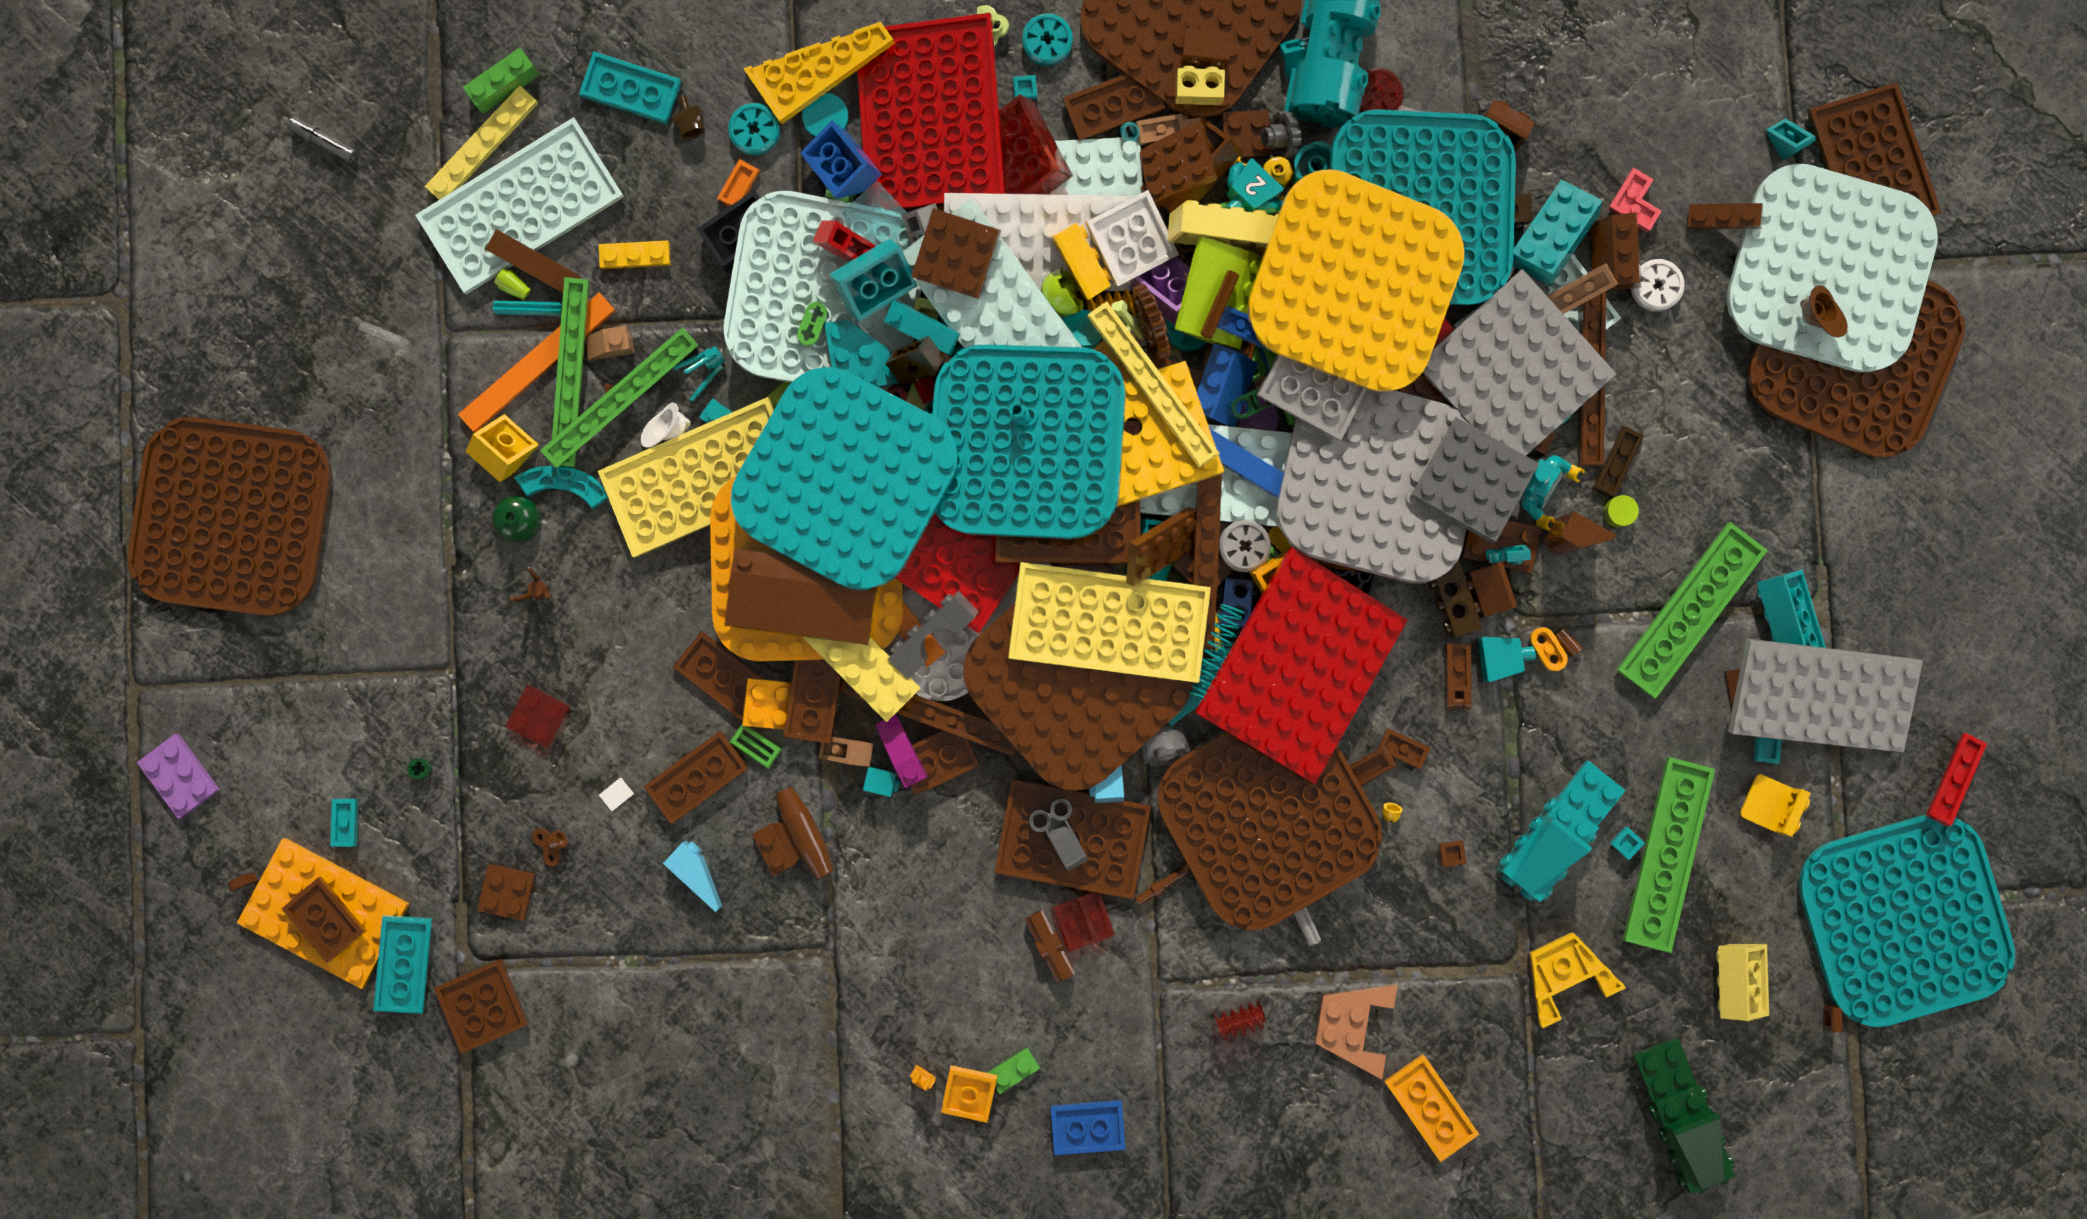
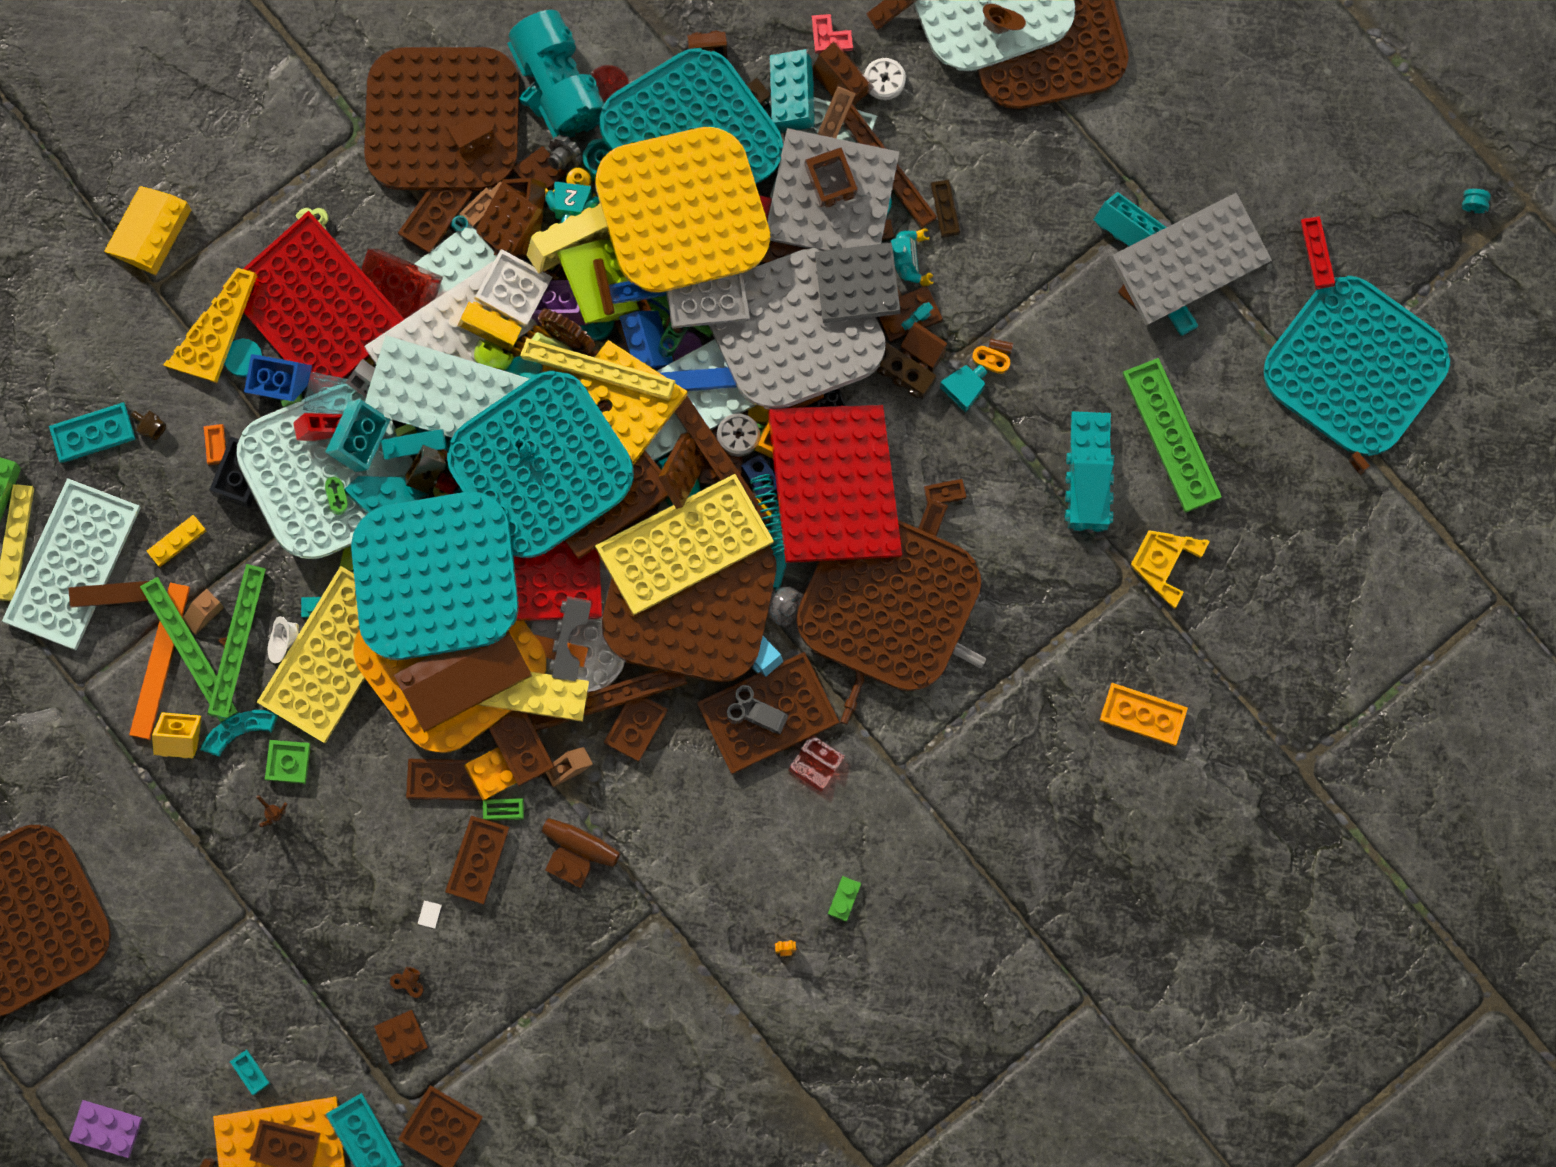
camera: 35 degrees left, 10 degrees down
(411, 771) = (270, 995): dark green bush -> none
(512, 284) = (104, 620): lime cone -> none
(516, 519) = (226, 783): dark green cylinder -> none
(527, 308) = (126, 629): teal axle -> none
(538, 716) = (335, 900): clear red plate -> none
(586, 550) = (287, 761): none -> bright green plate
(693, 871) = (518, 923): medium azure slope -> none
(711, 358) = (280, 572): teal plant -> none
(752, 115) = (191, 392): teal wheel -> none
(881, 782) = (608, 769): teal brick -> none
(901, 751) = (607, 737): magenta slope -> none
(956, 253) = (402, 378): reddish brown plate -> none
(969, 1093) = (825, 935): light orange plate -> none
(1025, 86) = (366, 242): teal tile -> none
(1037, 50) = (357, 214): teal wheel -> none
(1049, 946) = (806, 795): reddish brown piece -> none
(1088, 1127) = (923, 898): blue plate -> none
(1199, 93) = (489, 165): light yellow brick -> none
(1240, 1020) = (971, 749): clear red piece -> none
(1344, 1025) = (1044, 703): nougat wing -> none
(1391, 812) = (969, 540): yellow hinge -> none
(1452, 853) = (1029, 537): reddish brown plate -> none
(1458, 675) = (945, 419): reddish brown plate -> none
(1533, 329) = (824, 160): none -> reddish brown window
(1575, 533) = (951, 271): reddish brown slope -> none
(1621, 511) = (970, 238): lime piece -> none
(1627, 843) = (1138, 447): teal plate -> none
(1684, 1118) = (1312, 597): dark green wedge -> none
(1691, 610) = (1065, 268): bright green plate -> none
(1743, 981) = (1282, 481): light yellow slope -> none
(1775, 805) = (1215, 353): yellow bracket -> none

